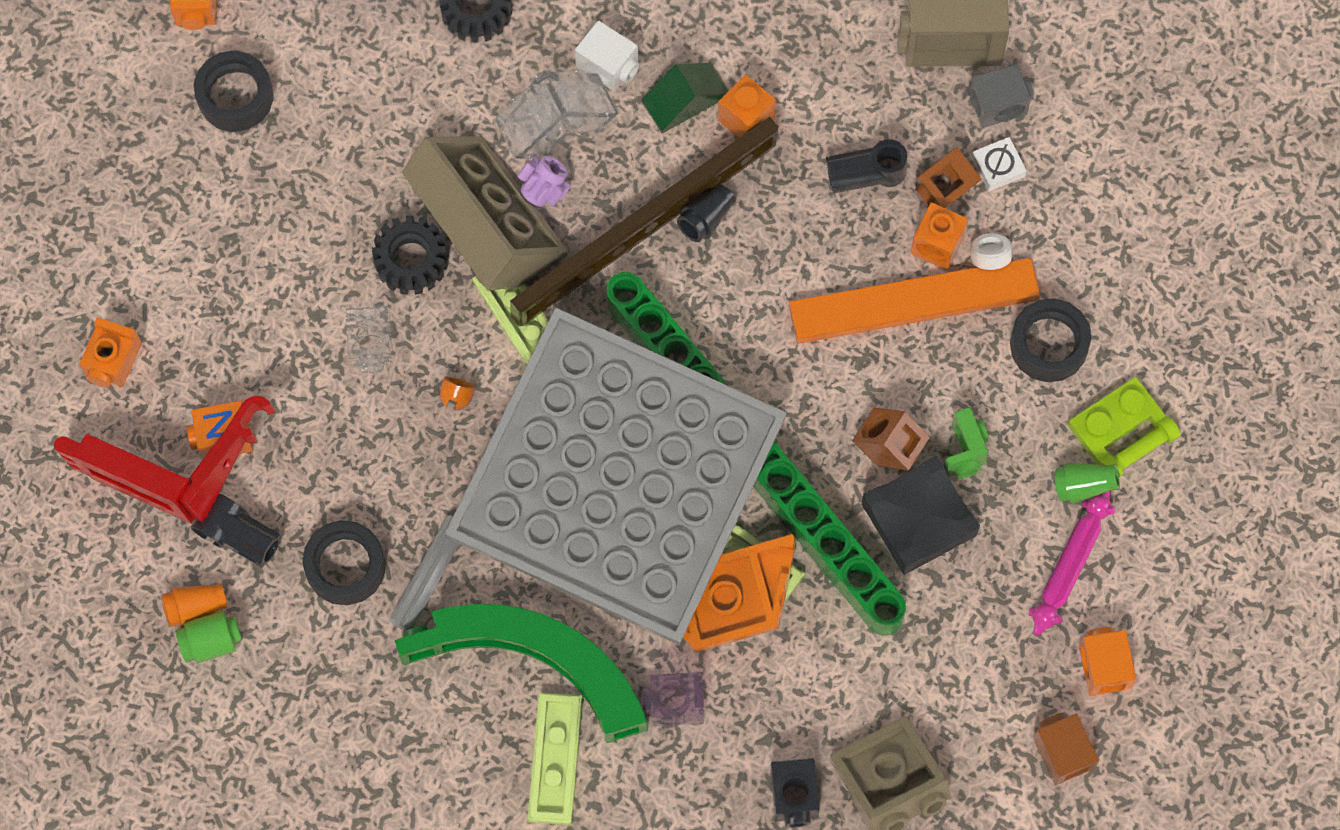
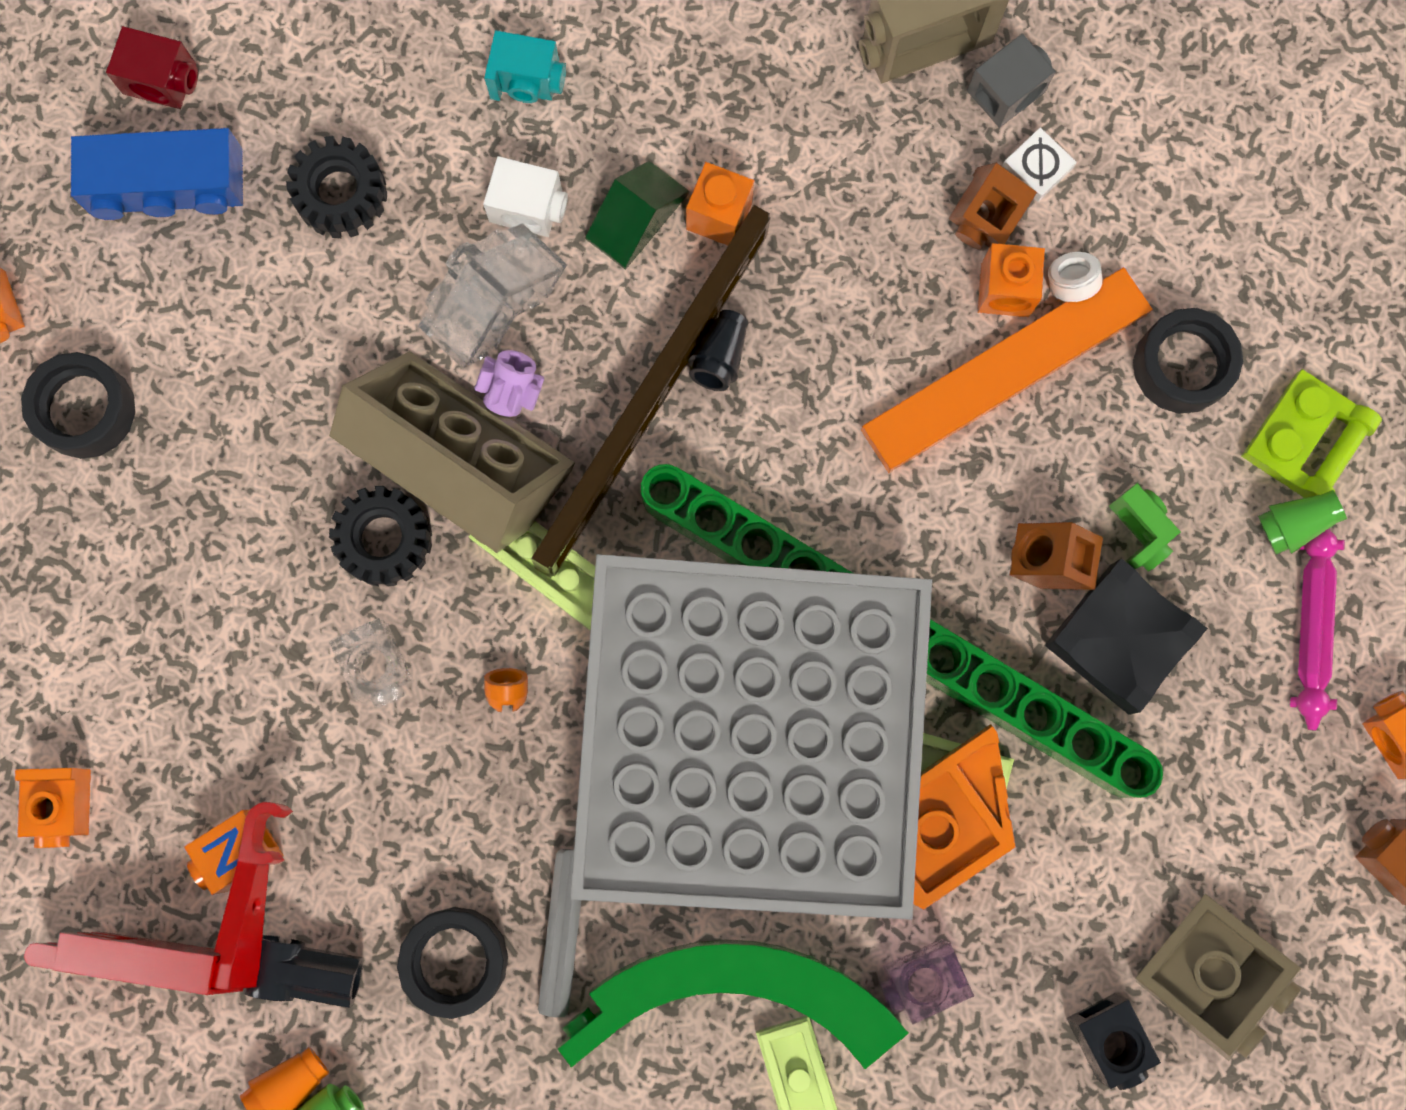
camera: 25 degrees left, 10 degrees up
(862, 167) = (887, 227): black piece -> none

